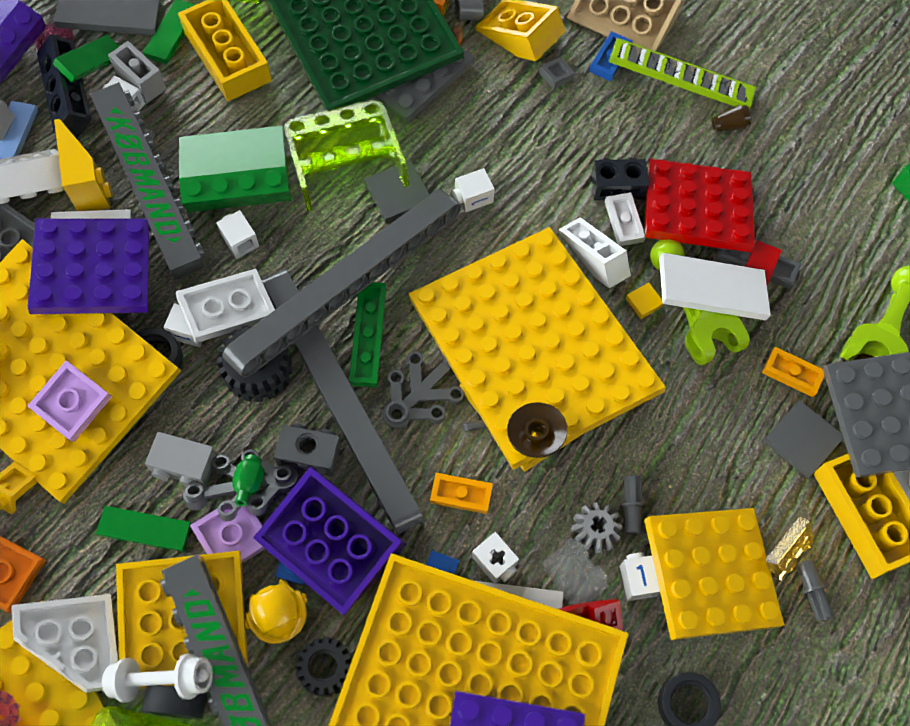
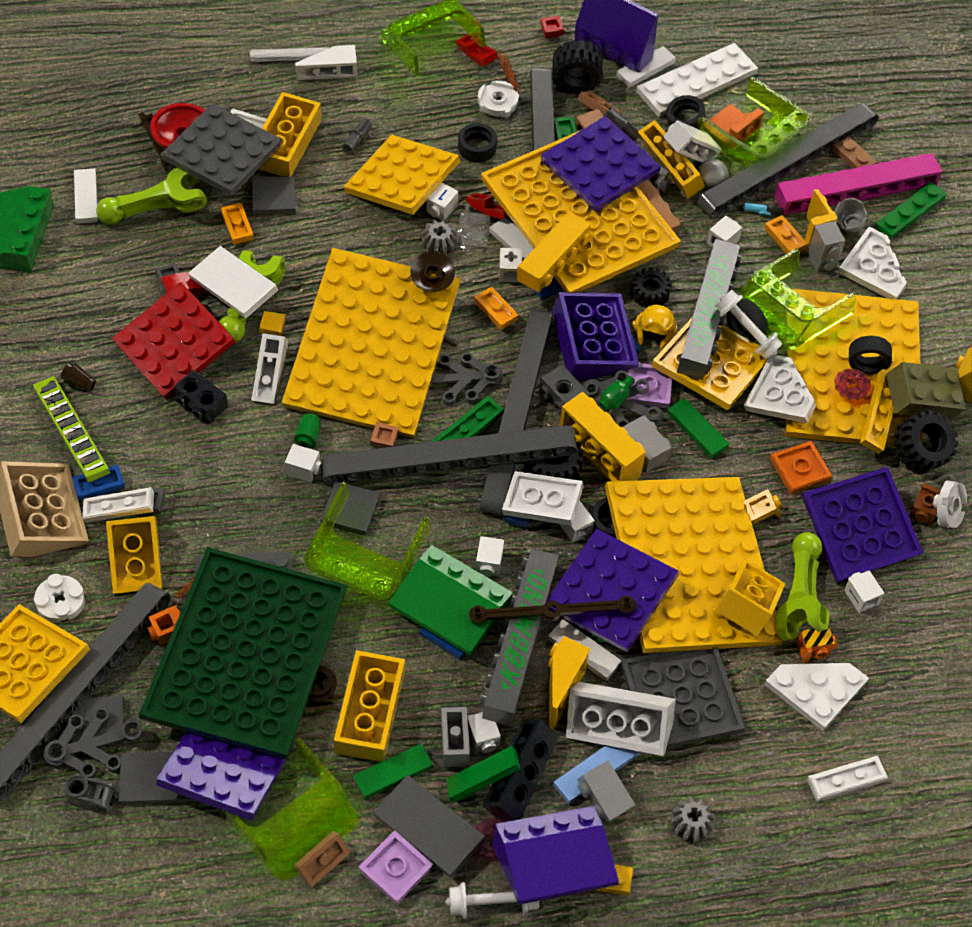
camera: 140 degrees left, 10 degrees down
(58, 243) = (625, 605): none -> dark brown piece
(69, 401) = (691, 509): lavender plate -> none
(219, 413) = (603, 440): none -> yellow brick
(275, 45) = (329, 685): none -> dark brown gear
(432, 269) = (384, 436): none -> nougat plate
(445, 580) = (554, 252): none -> yellow brick
(500, 221) = (307, 431): none -> green brick
(573, 48) = (118, 505): none -> white tile
(624, 219) = (228, 371): white plate -> none
(633, 505) = (407, 233): dark grey axle -> none
(794, 542) = (357, 154): clear yellow plate -> none

